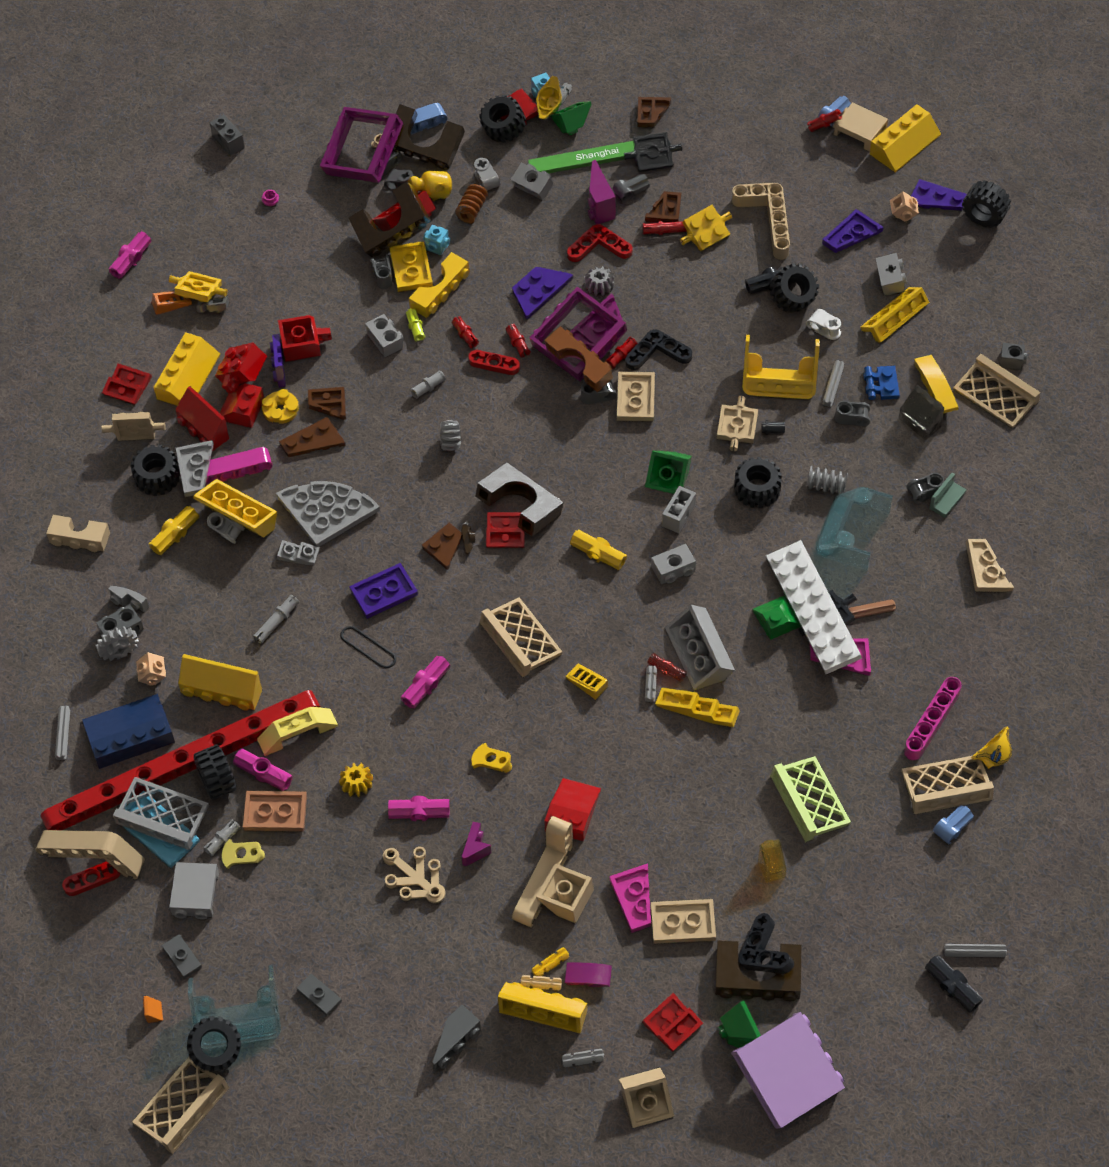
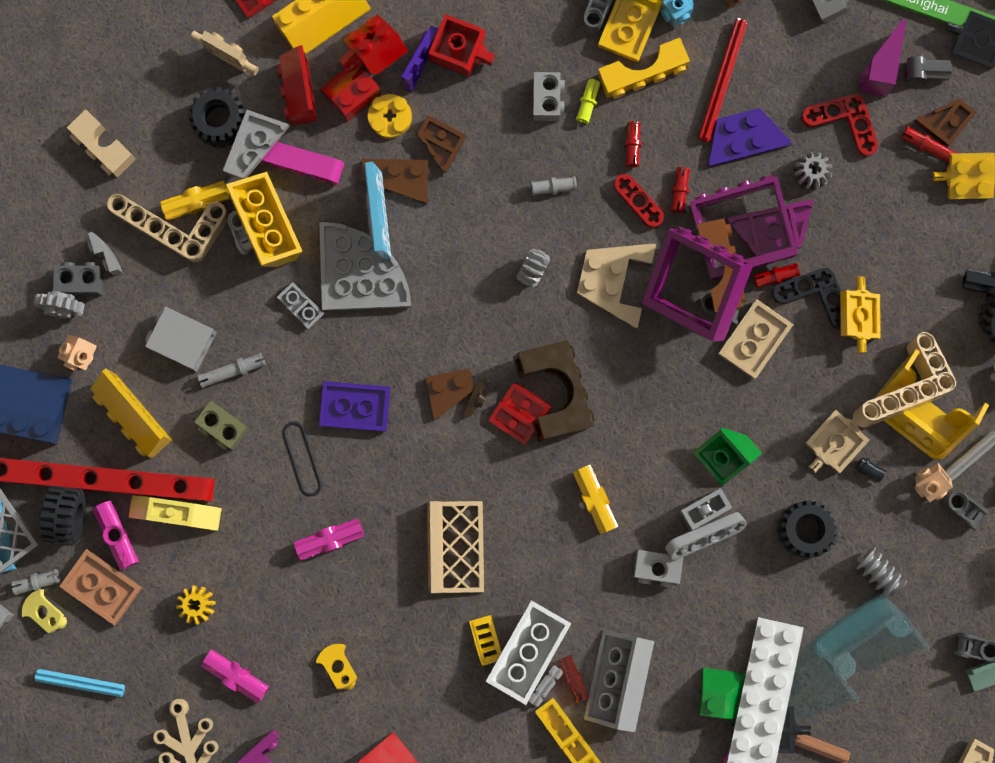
camera: 35 degrees right, 25 degrees up
(166, 558) = (167, 231): none -> tan beam
(223, 617) = (180, 338): none -> light grey panel
(294, 651) = (224, 422): none -> olive brick
(302, 885) = (79, 683): none -> medium azure axle
(315, 455) = (377, 210): none -> medium azure tile
(498, 265) = (722, 80): none -> red axle
(504, 418) = (605, 275): none -> tan wing
(600, 364) = (731, 297): none -> magenta window
(622, 663) = (528, 652): none -> white slope
(679, 535) = (705, 536): none -> light grey beam
(694, 341) = (860, 314): none -> yellow plate
(771, 355) = (930, 385): none -> tan beam
(824, 404) = (933, 482): none -> light nougat brick

